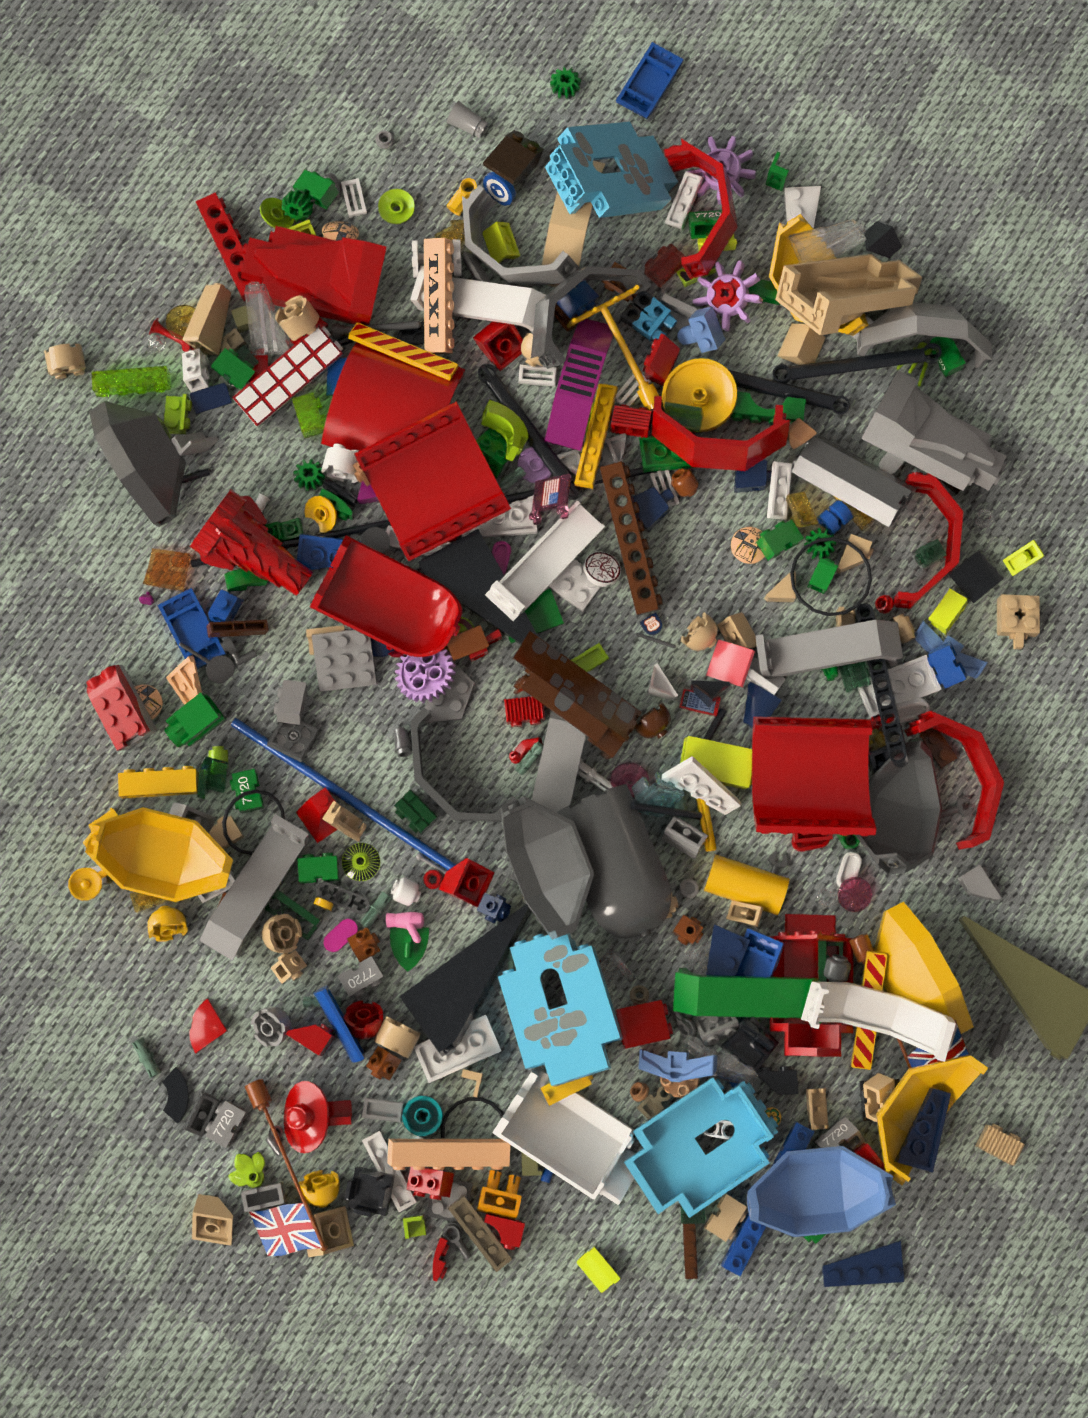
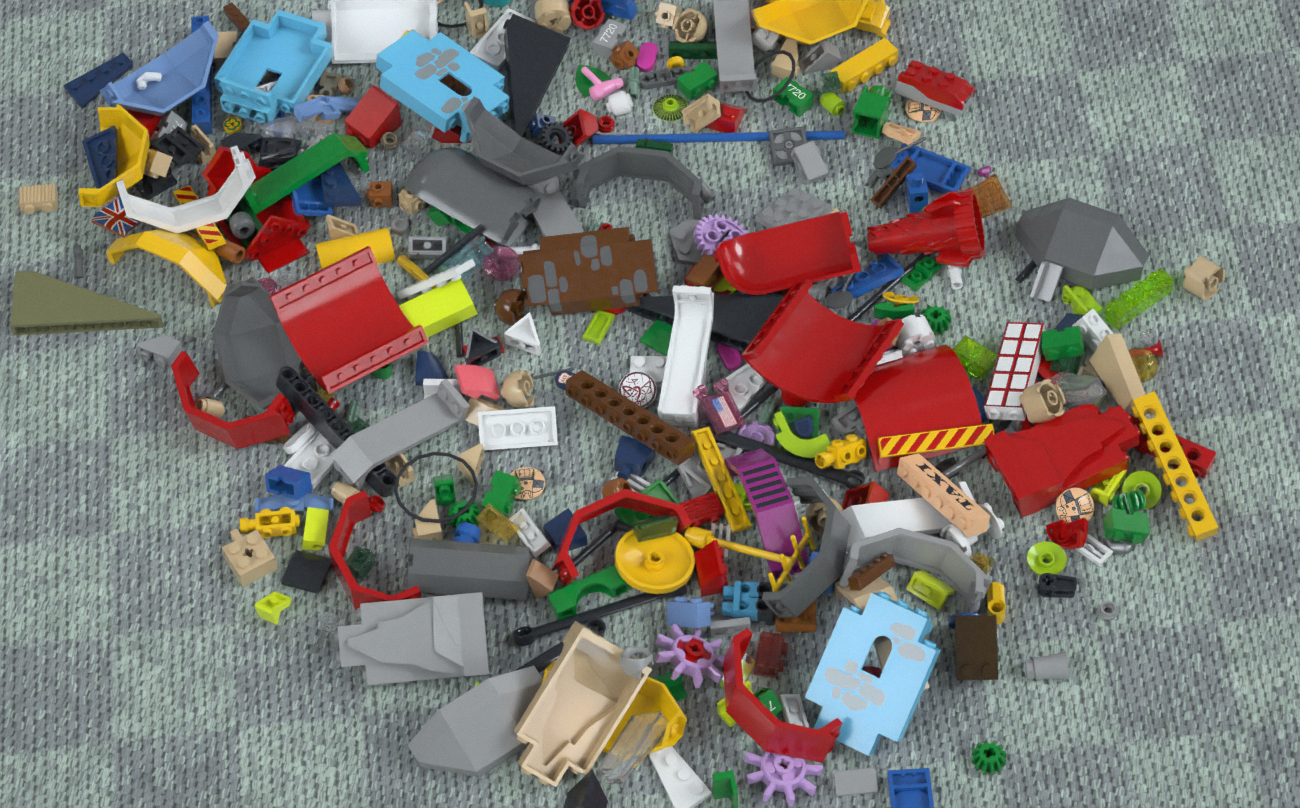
camera: 150 degrees right, 25 degrees down
(222, 262) = (1150, 404): none -> yellow brick
(363, 213) = (1068, 535): none -> red brick
(406, 178) = (1058, 586): none -> black piece
(485, 389) = (842, 452): none -> yellow brick
(496, 437) = (803, 427): none -> dark blue tile
(502, 886) = (558, 130): none -> black tyre
(550, 257) = (871, 571): none -> reddish brown piece
(673, 129) = (855, 781): none -> light grey slope
(725, 594) = (518, 428): none -> white plate
(795, 263) = (634, 667): none -> light grey piece
(835, 1214) = (142, 81): none -> white arm
(844, 1107) = (179, 146): none -> black slope
(852, 704) = (353, 412): none -> sand green axle
(971, 789) = (211, 407): none -> tan brick
(979, 633) = (272, 523): none -> yellow brick

